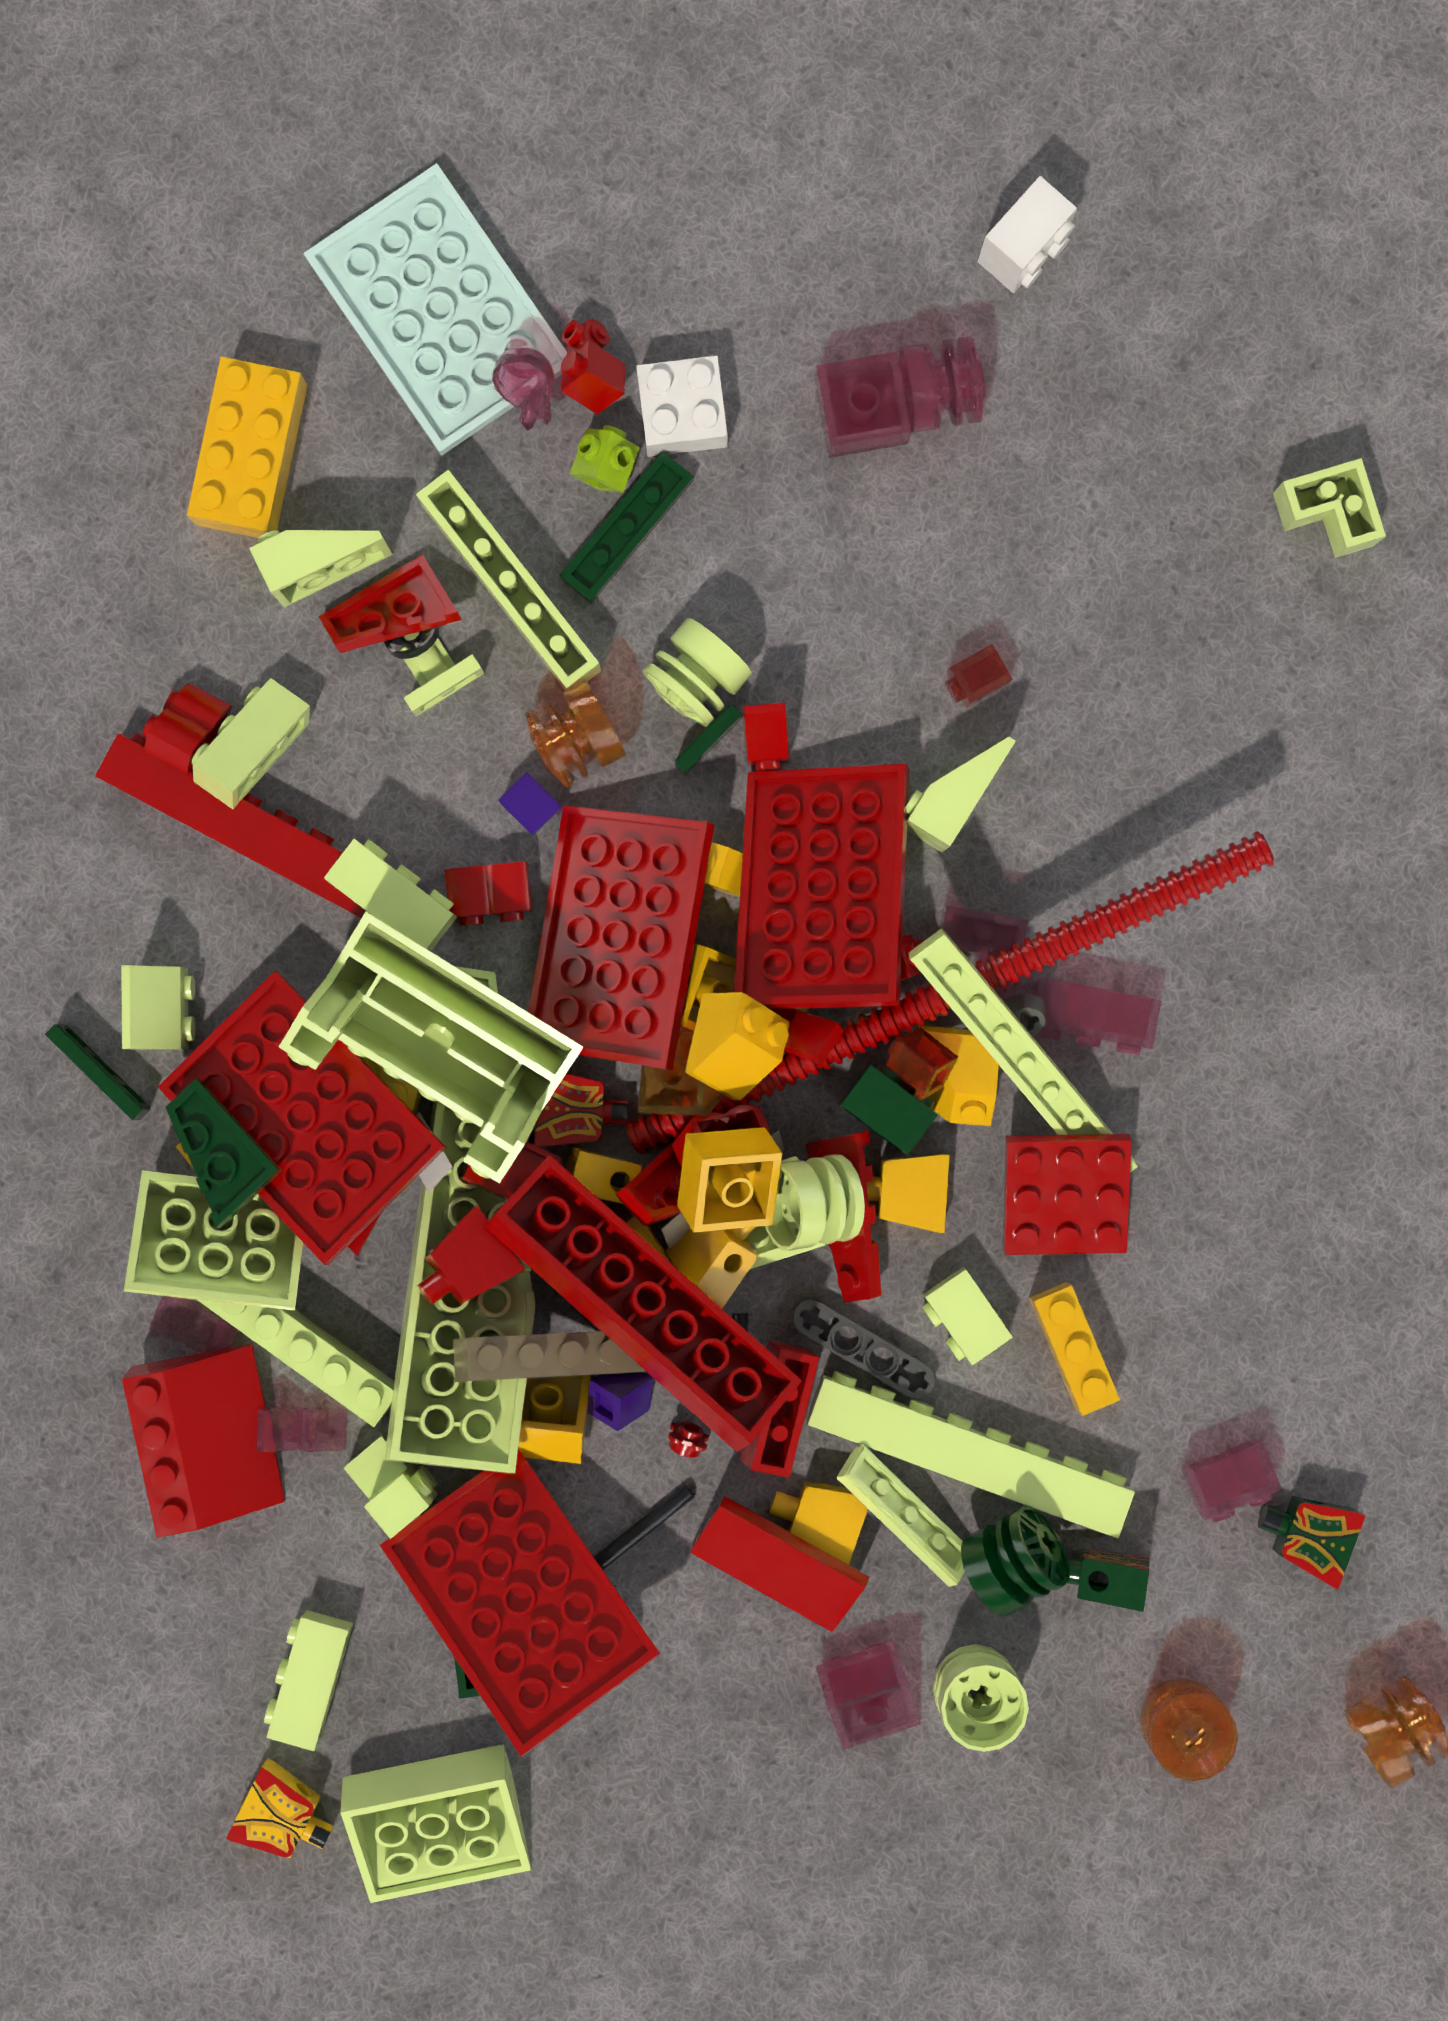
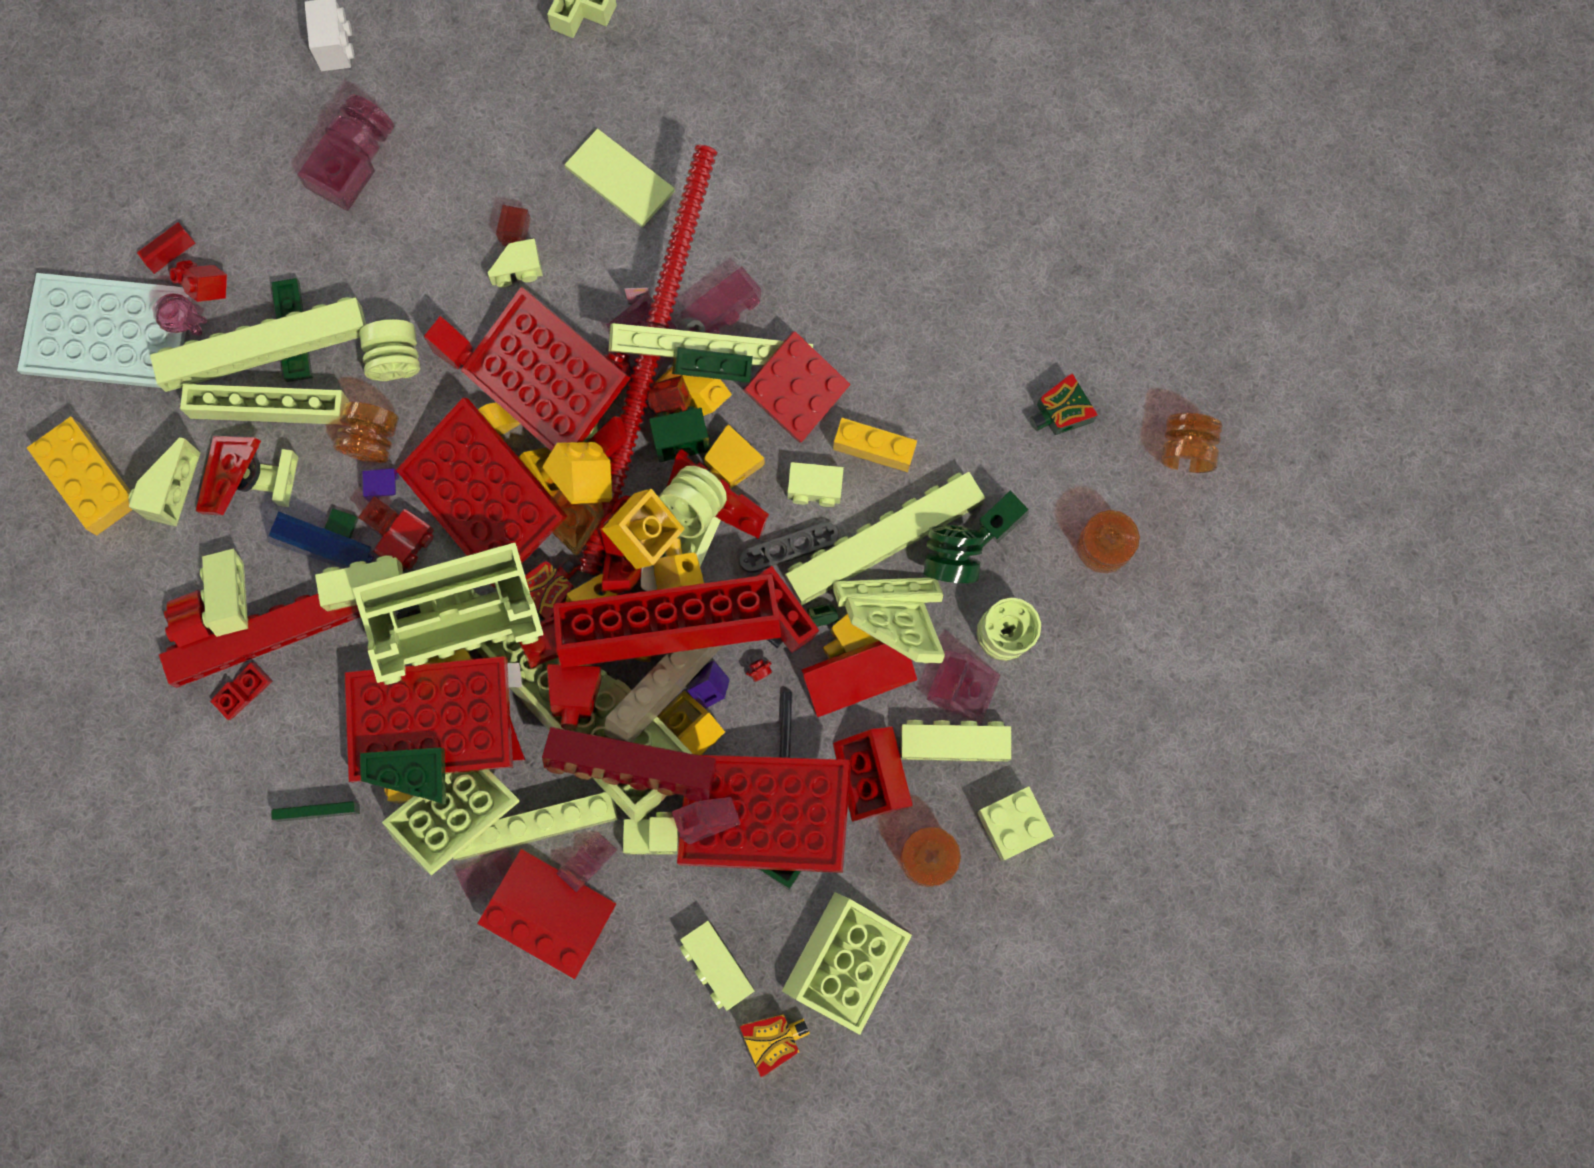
camera: 50 degrees left, 10 degrees down
(156, 1007) = (310, 751): yellowish green slope -> none
(161, 859) = (241, 691): none -> red slope
(400, 798) = (317, 542): none -> clear blue slope
(439, 1406) = (629, 764): none -> dark red brick
(445, 798) = (341, 523): none -> dark green tile
(454, 1543) = (705, 819): none -> clear pink slope
(489, 841) = (378, 516): none -> clear red brick
(573, 512) = (258, 344): none -> yellowish green brick
(598, 284) = (166, 248): none -> red panel
(604, 459) = (248, 308): lime brick -> none
(636, 1801) = (913, 857): none -> clear orange wheel
(682, 406) = (258, 255): white brick -> none
(683, 1682) = (876, 773): none -> red slope
(708, 739) = (427, 375): dark green tile -> none
(755, 1890) = (1015, 823): none -> yellowish green brick
(793, 1740) = (955, 741): none -> yellowish green brick
(815, 1459) = (823, 614): none -> dark green tile
(871, 1573) = (899, 625): none -> yellowish green plate
(939, 720) = (516, 258): none -> yellowish green slope
(948, 802) = (557, 282): yellowish green slope -> none
(1001, 1081) = (712, 364): none -> dark green tile
(1017, 907) = (635, 294): none -> bright pink sticker
(1151, 748) = (619, 178): none -> yellowish green tile
(1231, 1480) = (1003, 423): clear pink brick -> none

